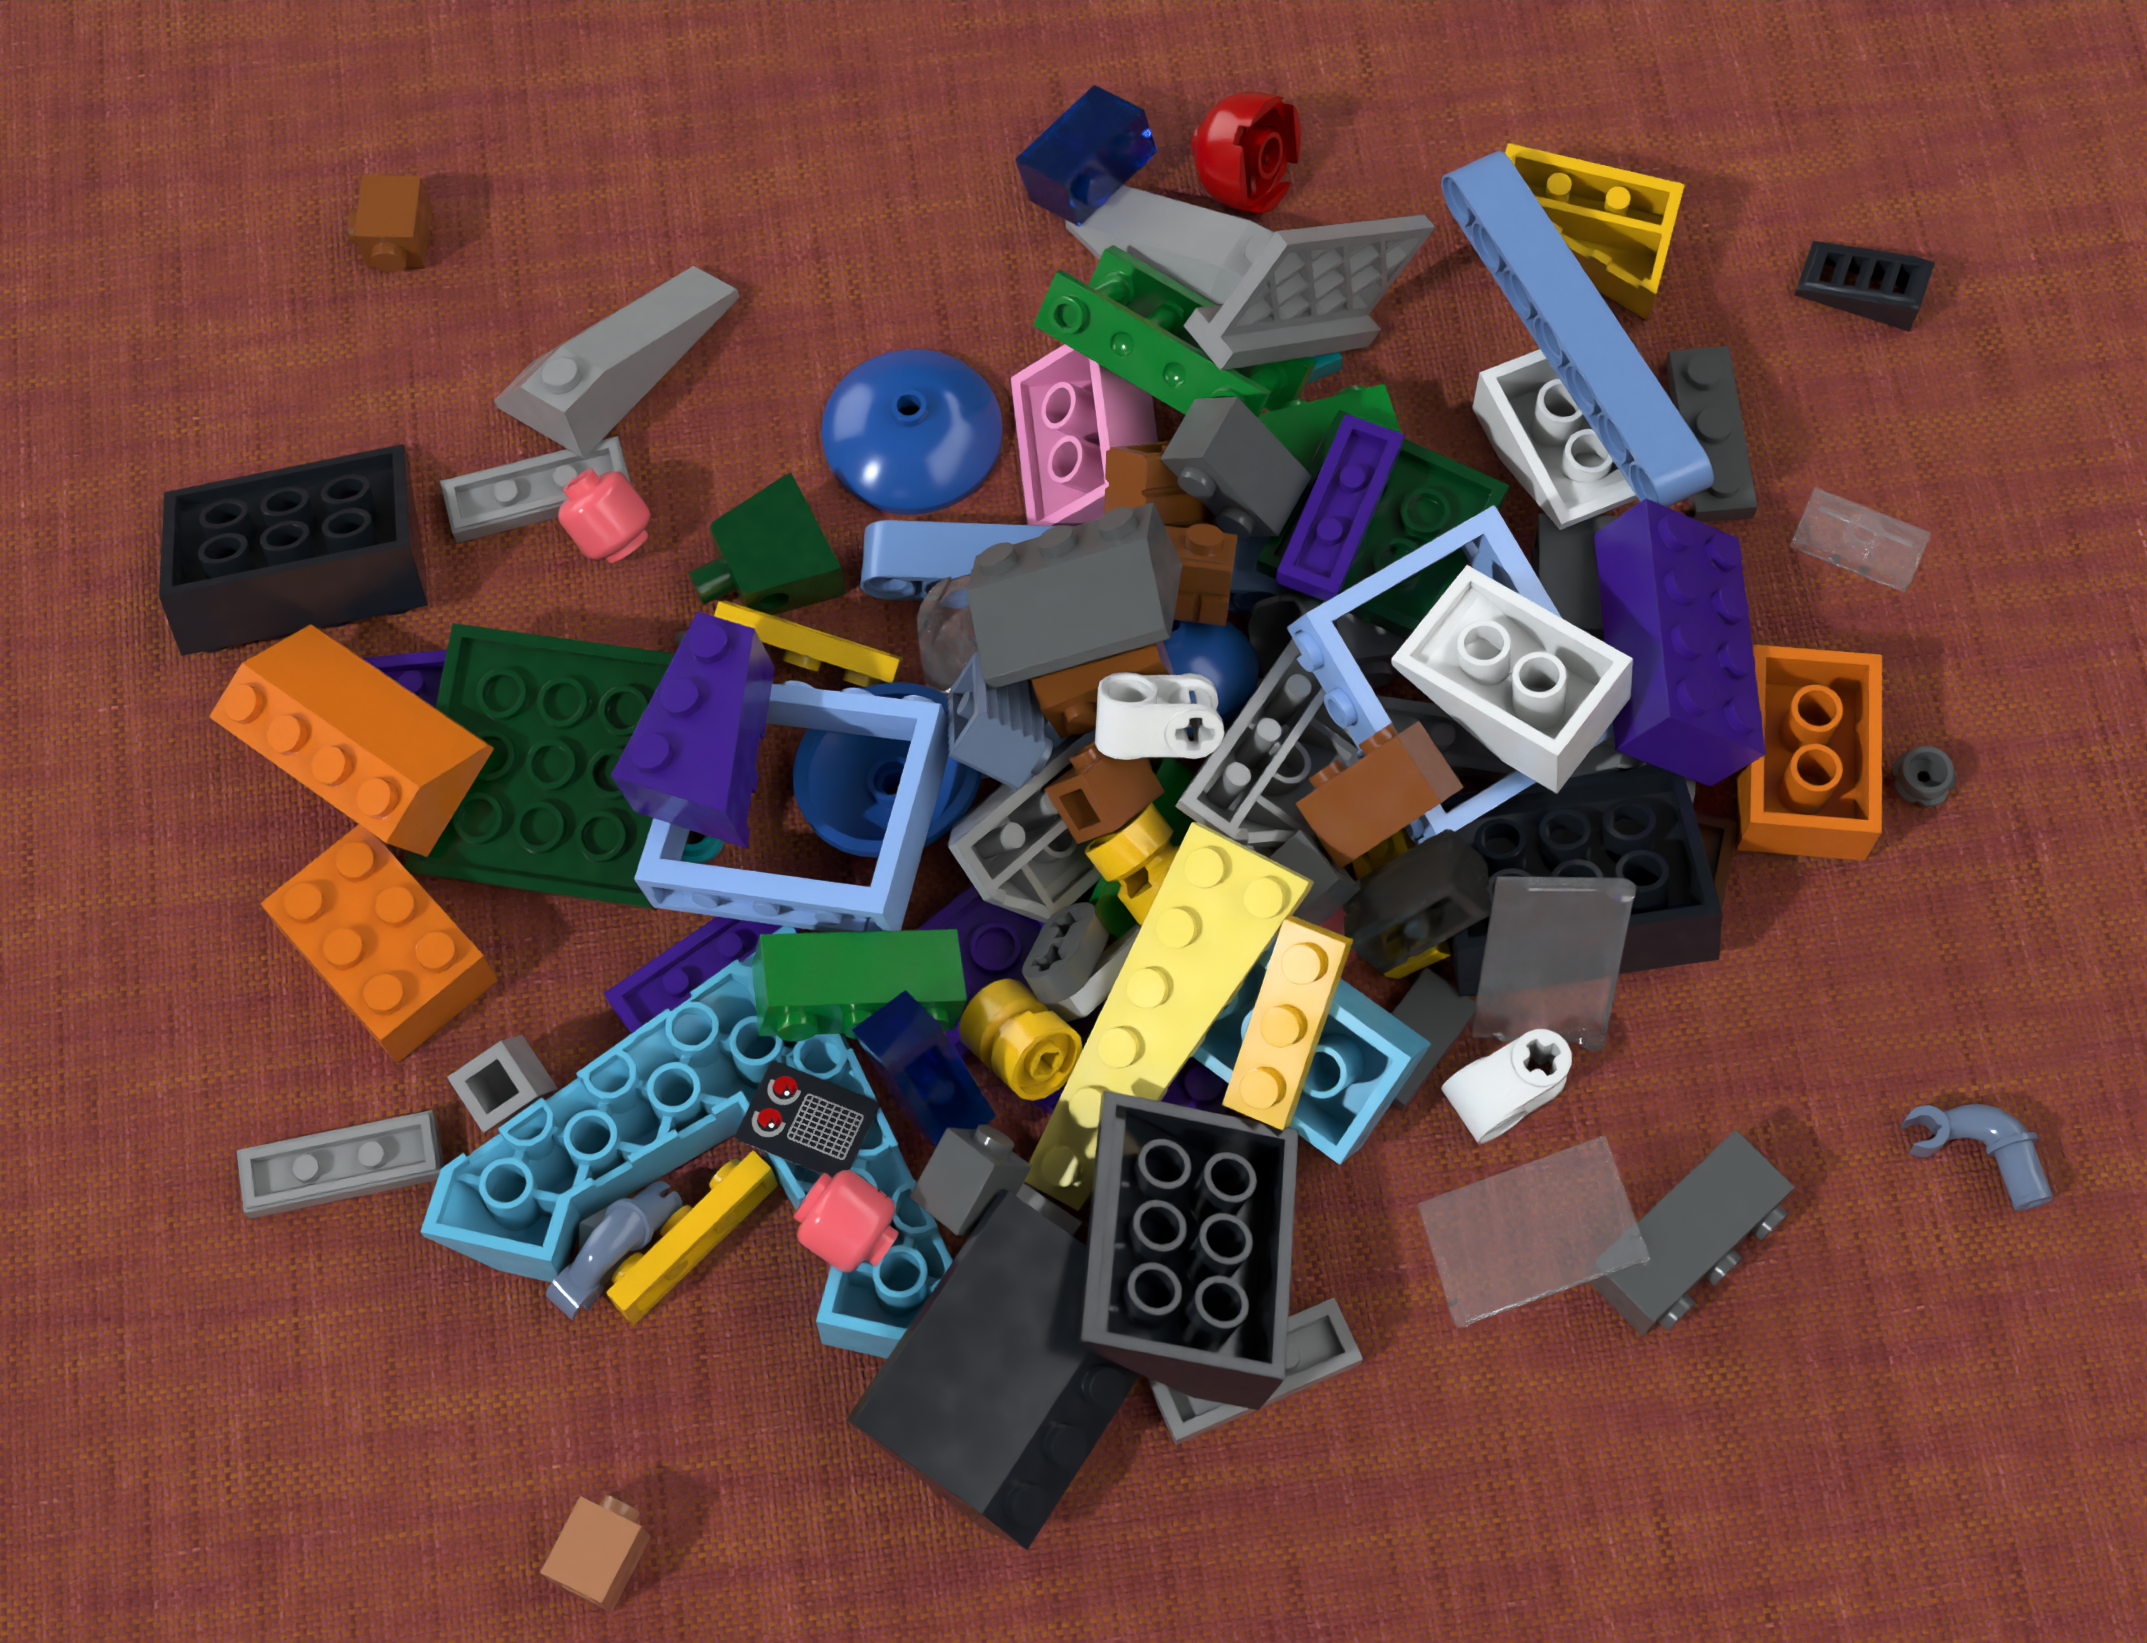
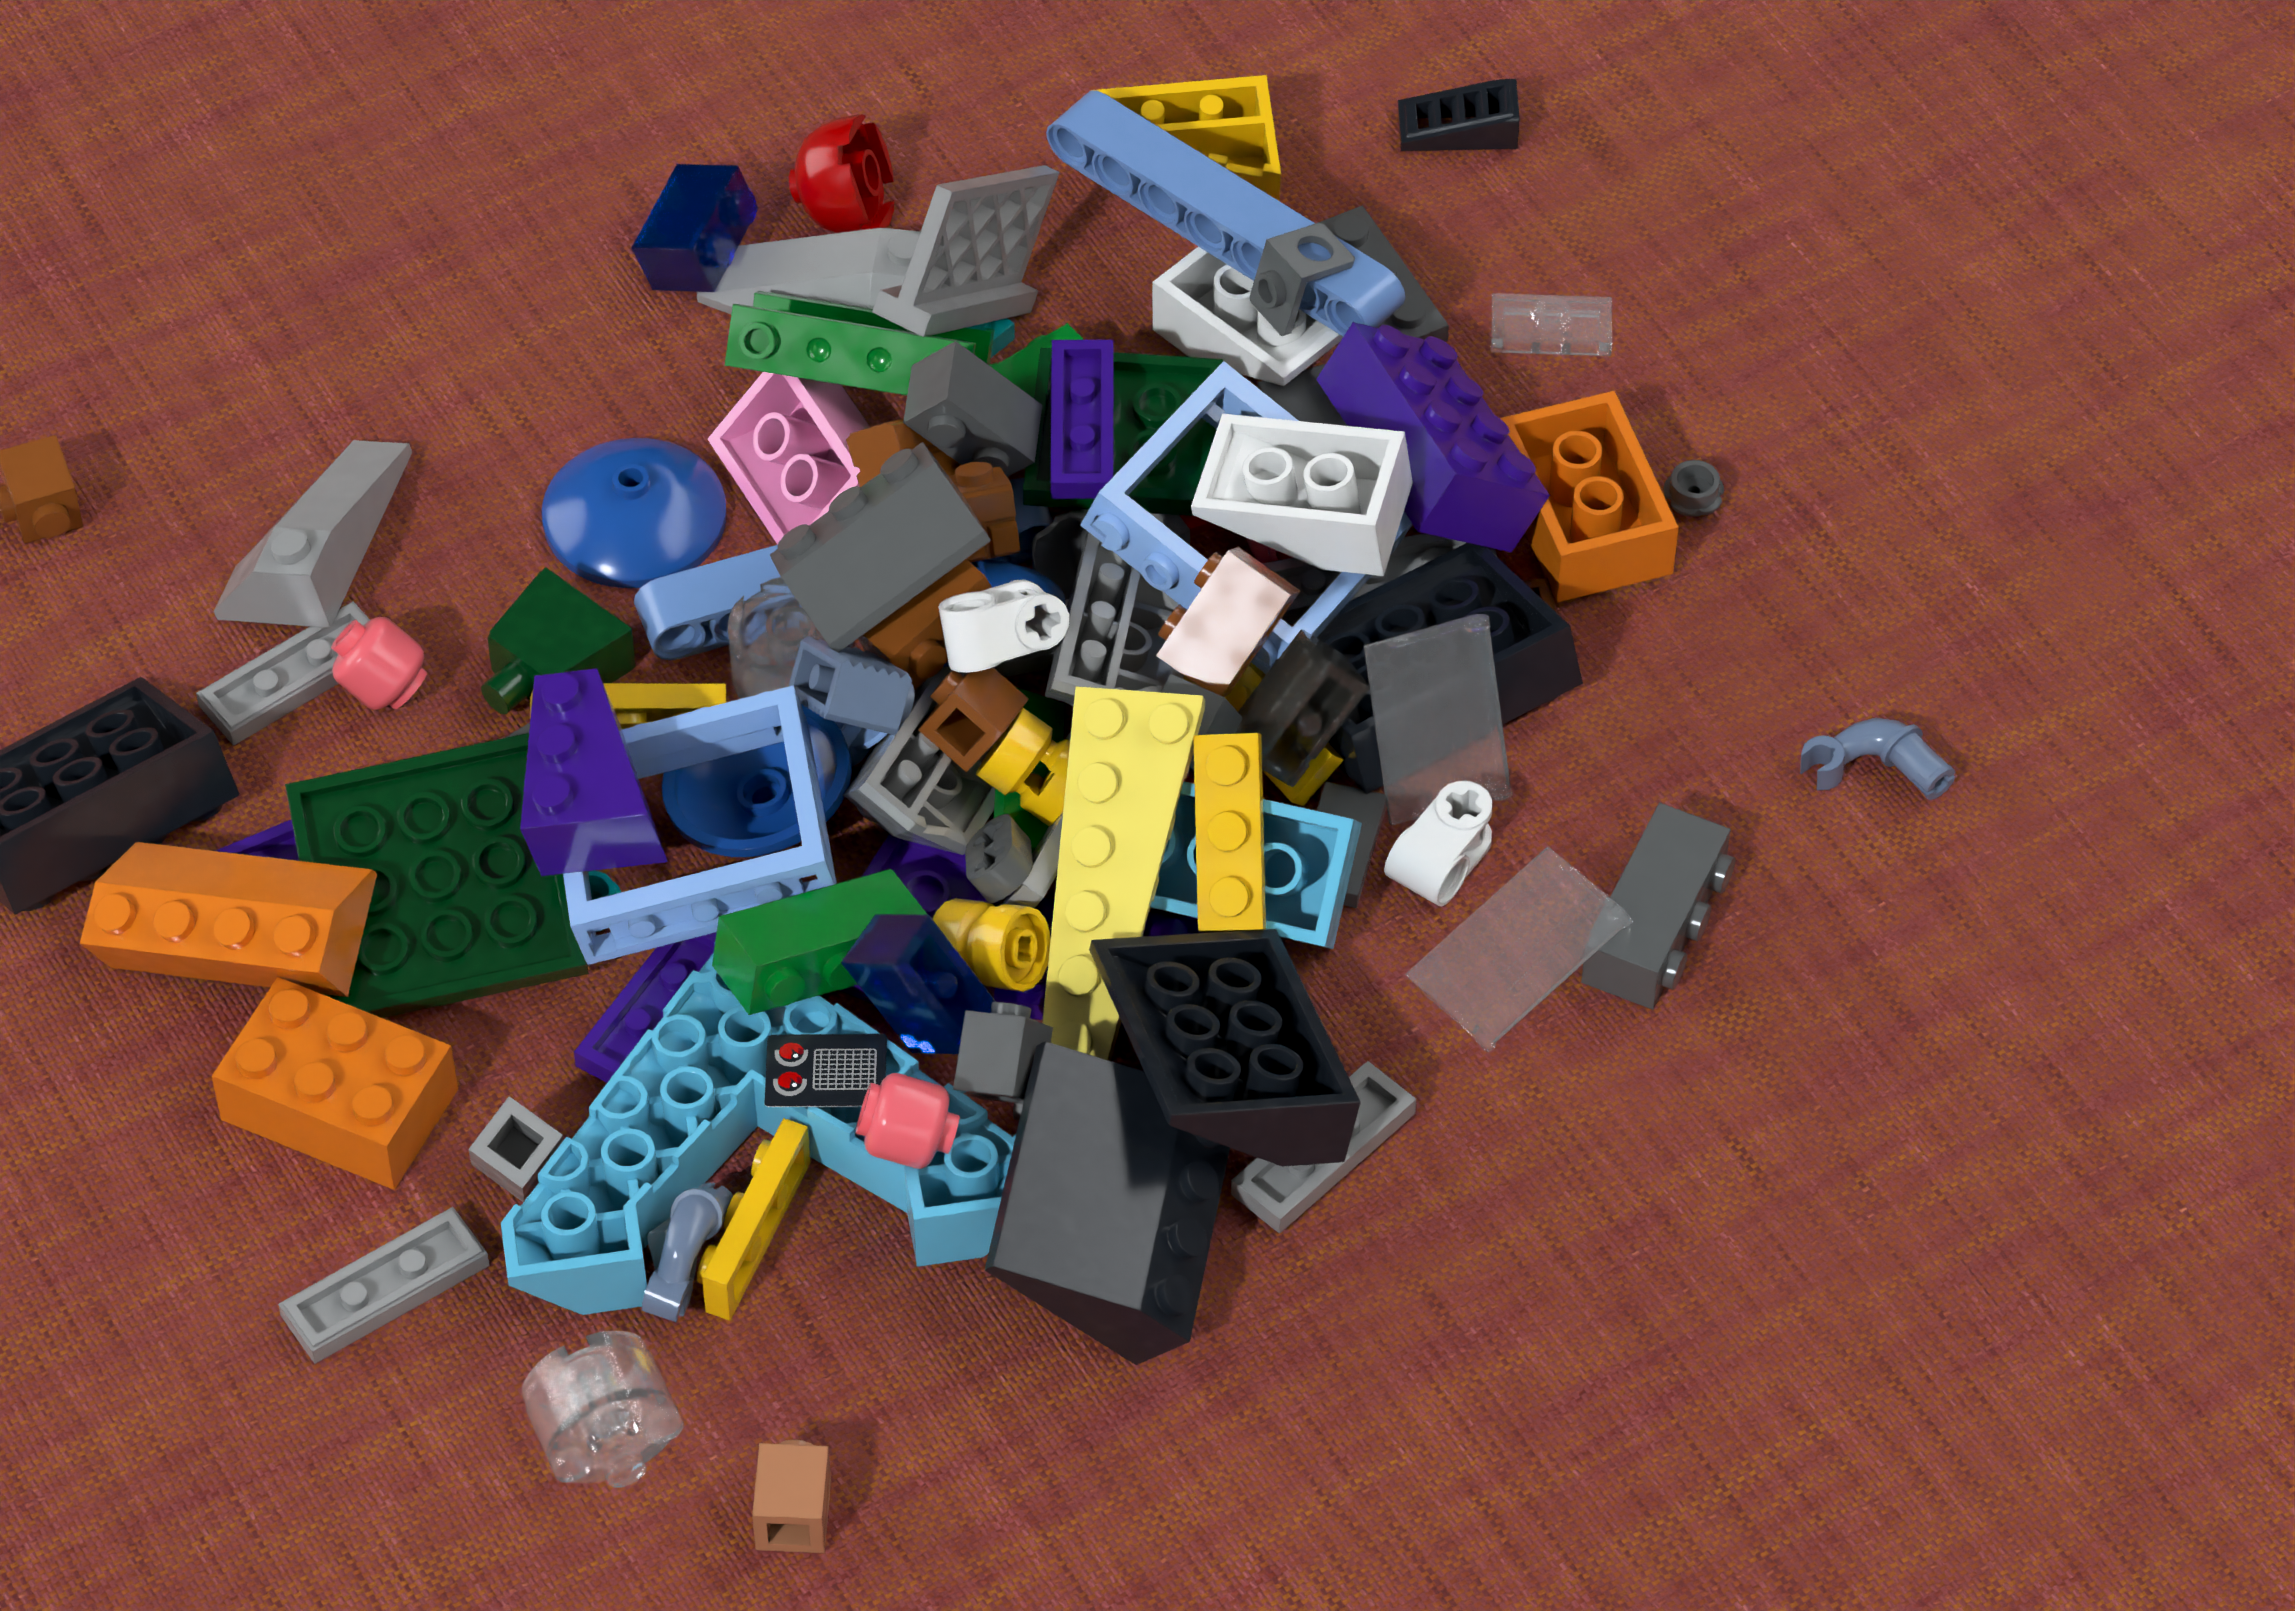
camera: 25 degrees left, 15 degrees down
(454, 1399) = (601, 1409): none -> clear brick
(1601, 422) = (1286, 271): none -> dark grey bracket

